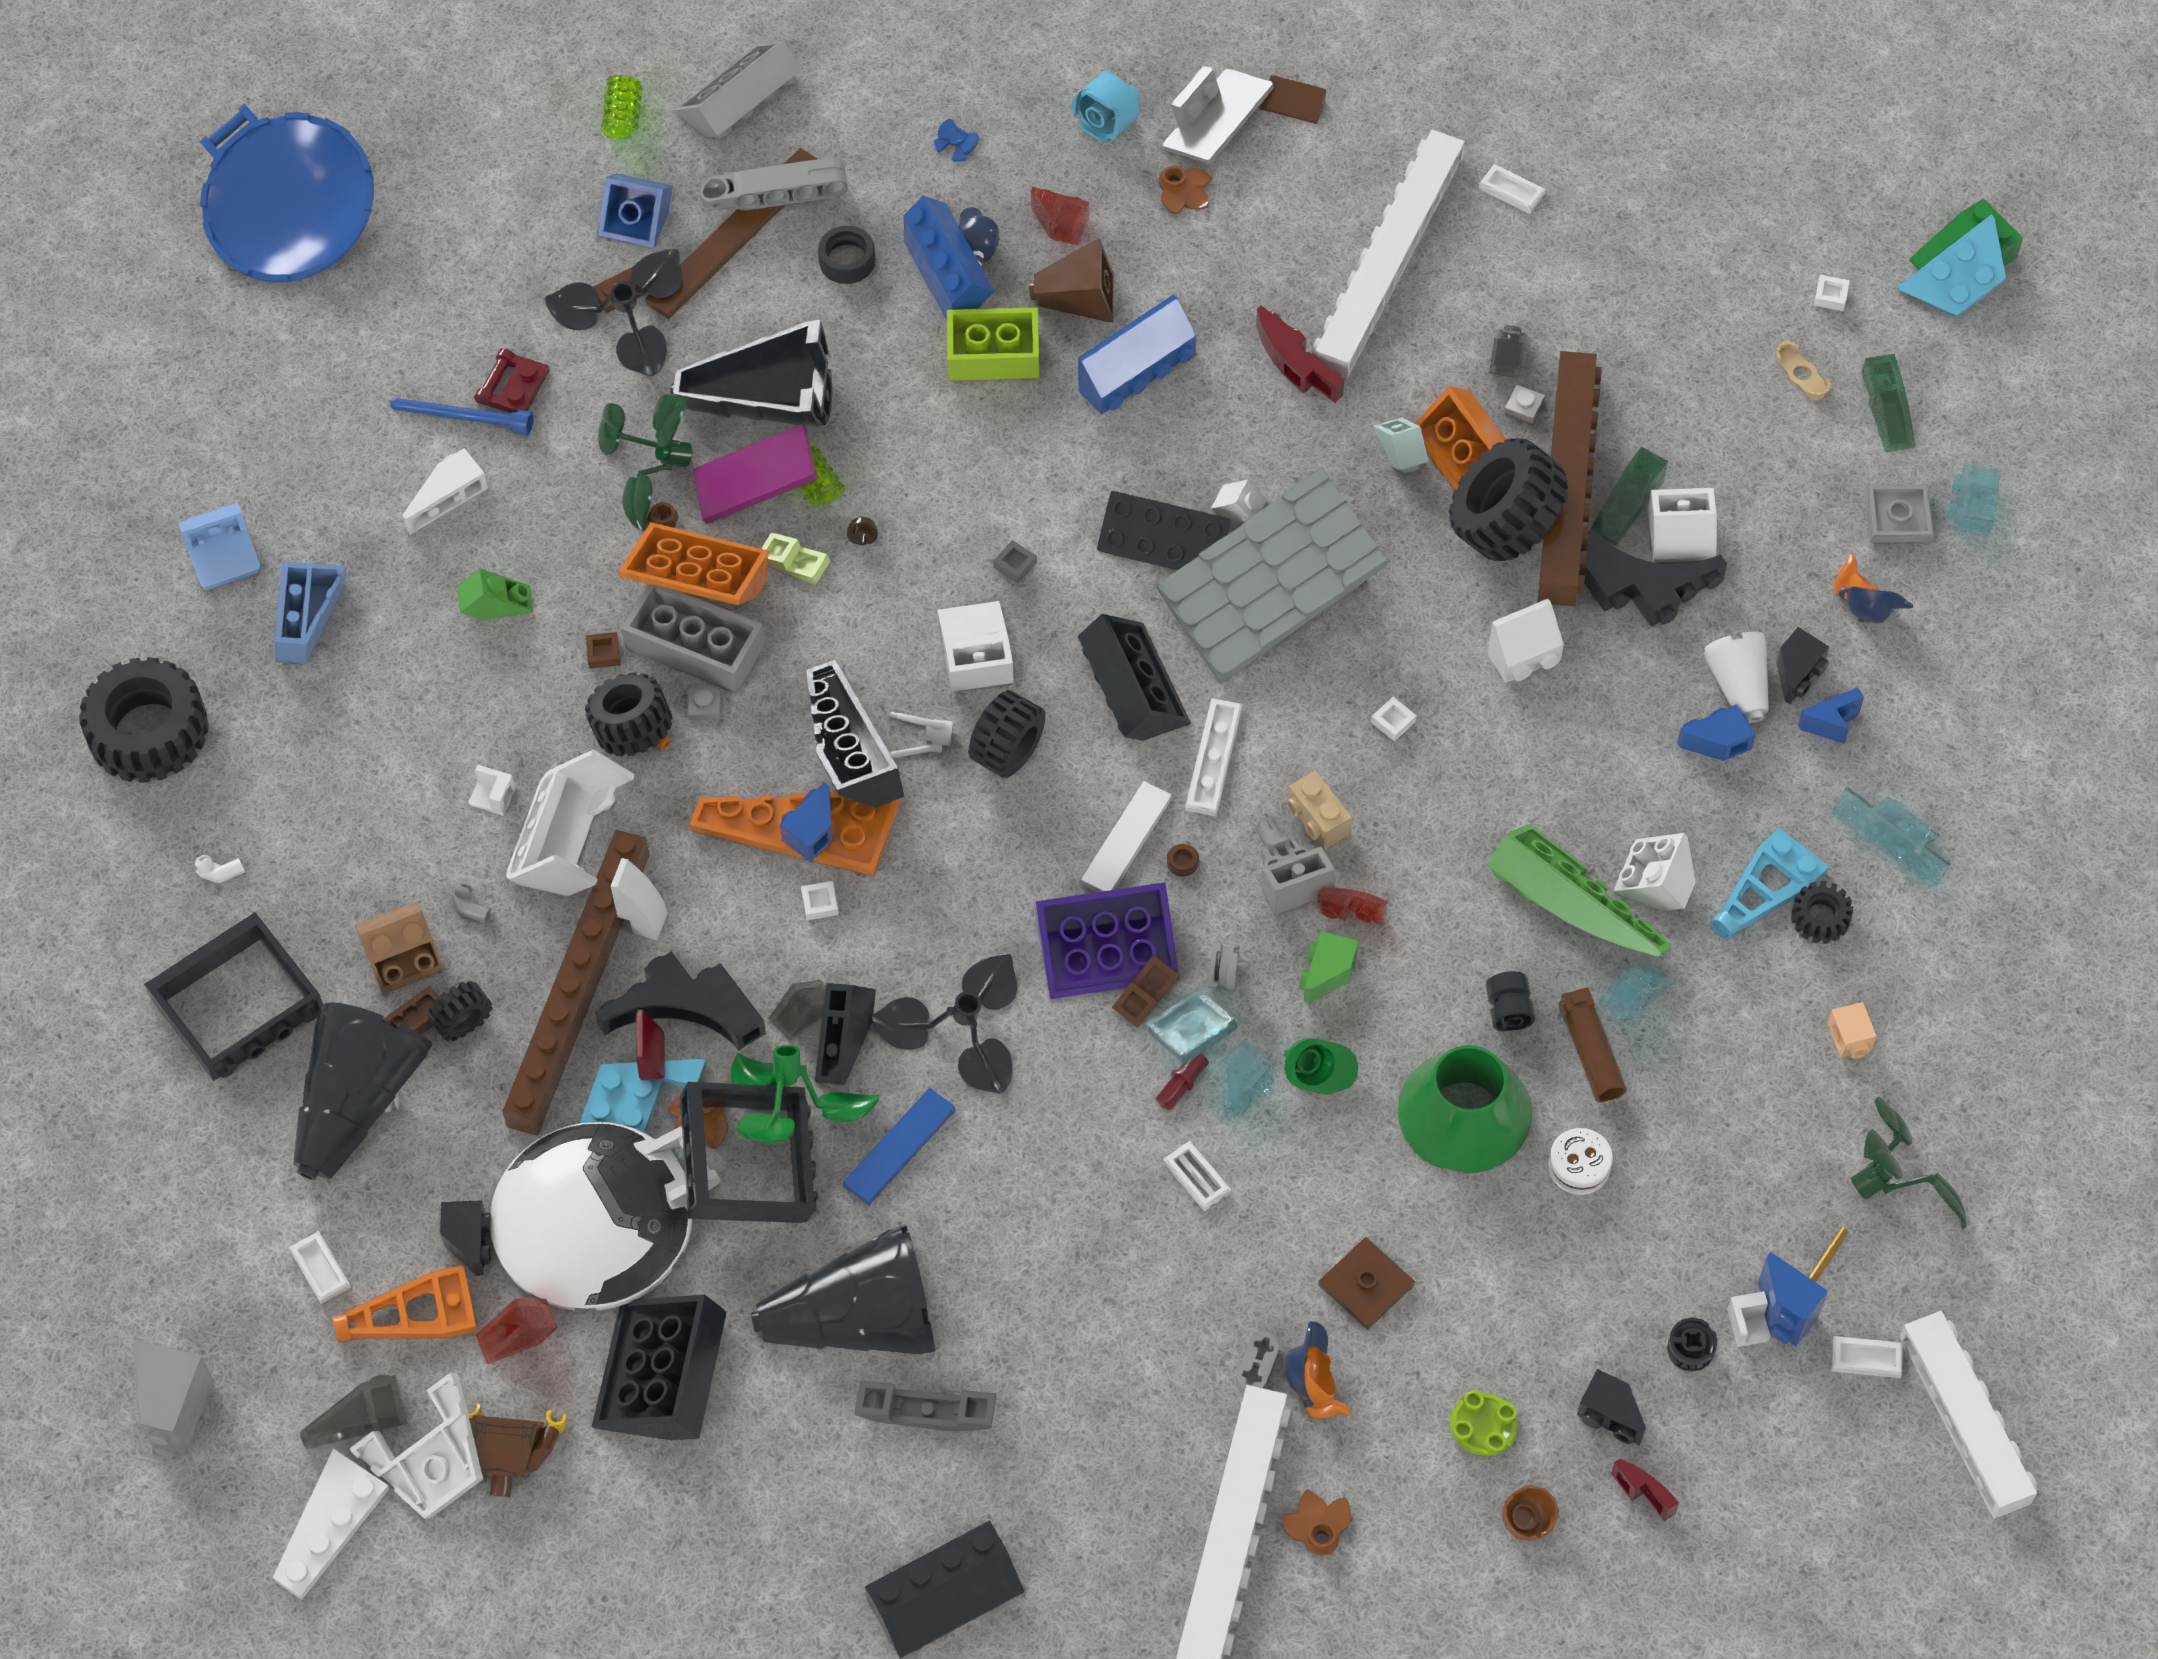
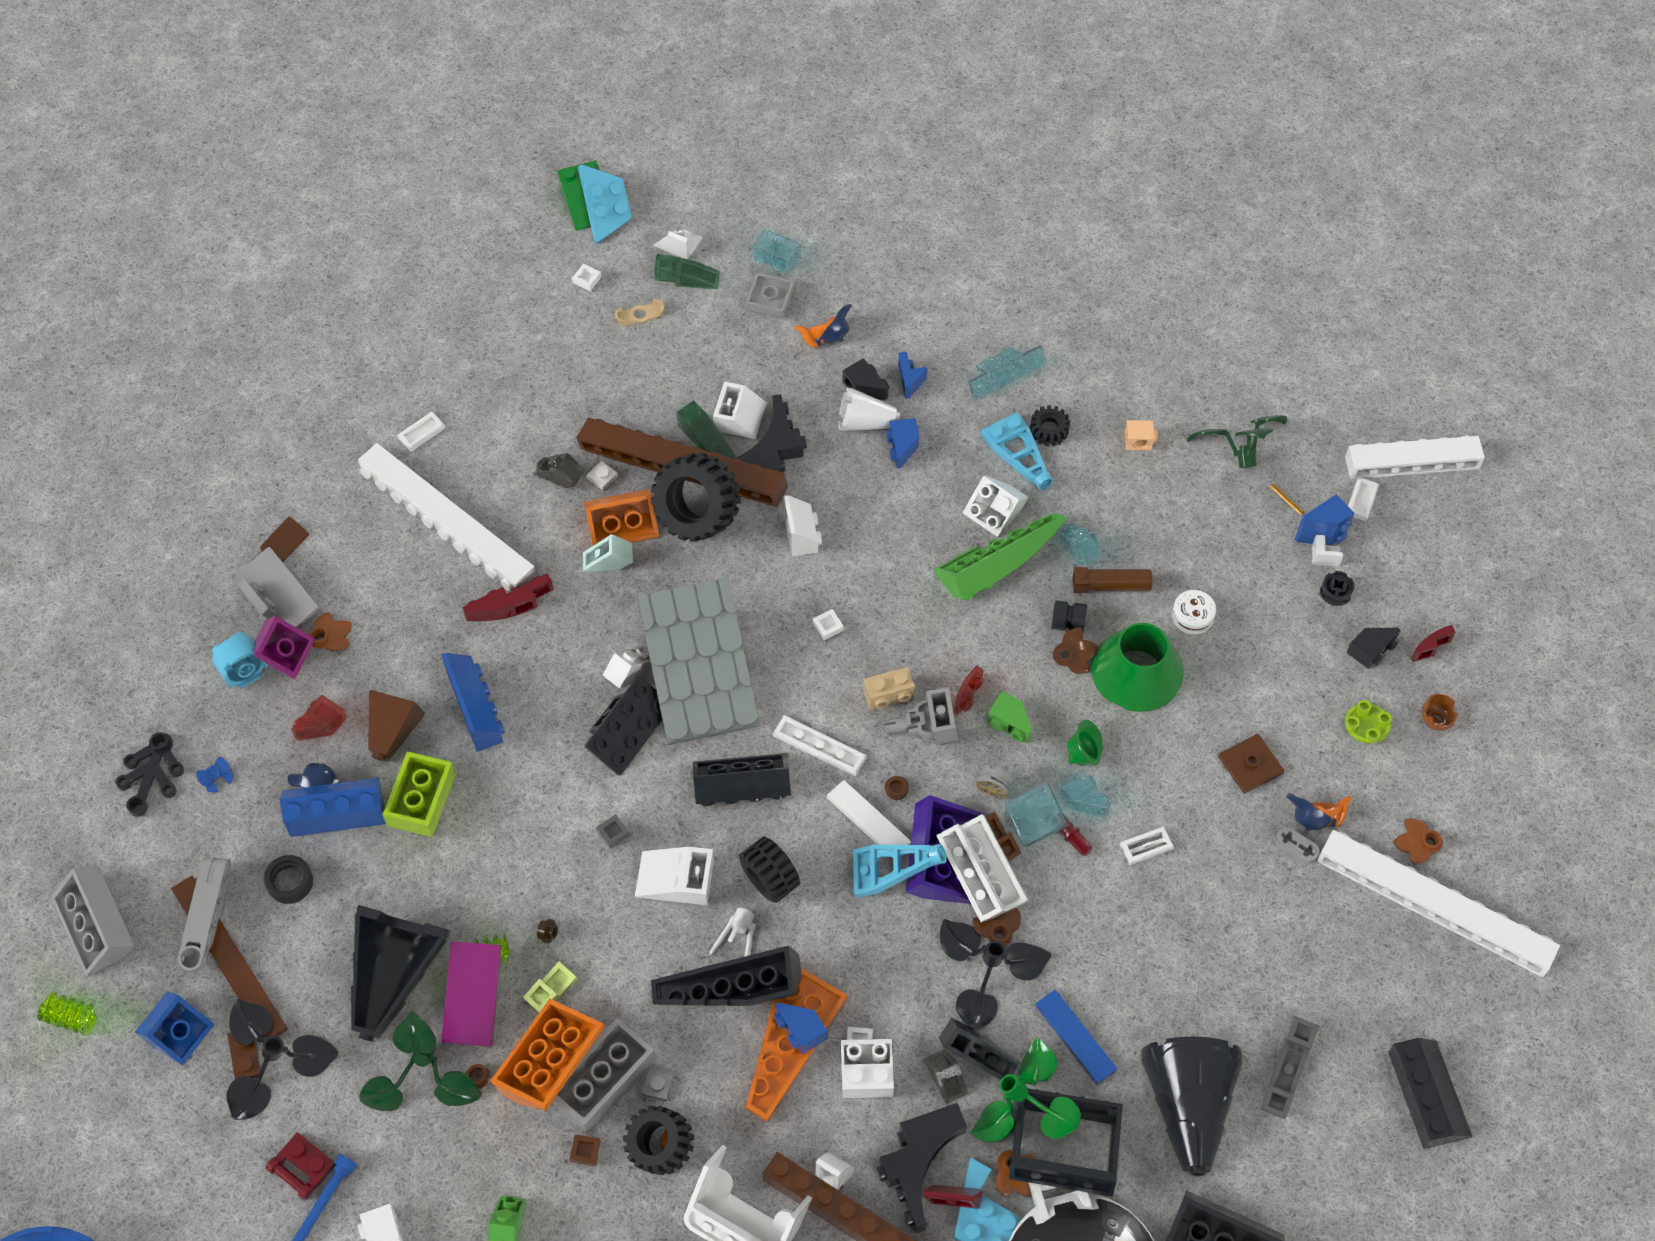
camera: 75 degrees left, 0 degrees up
(782, 913) = (867, 1068): none -> white slope
(940, 78) = (150, 771): none -> black plant
(1030, 1019) = (1005, 924): none -> reddish brown plate
(1052, 850) = (867, 865): none -> medium azure plate
(1089, 976) = (982, 868): none -> white slope
(1133, 139) = (282, 646): none -> magenta slope
(1460, 1024) = (1078, 650): none -> reddish brown plate
(1941, 387) = (679, 243): none -> white slope

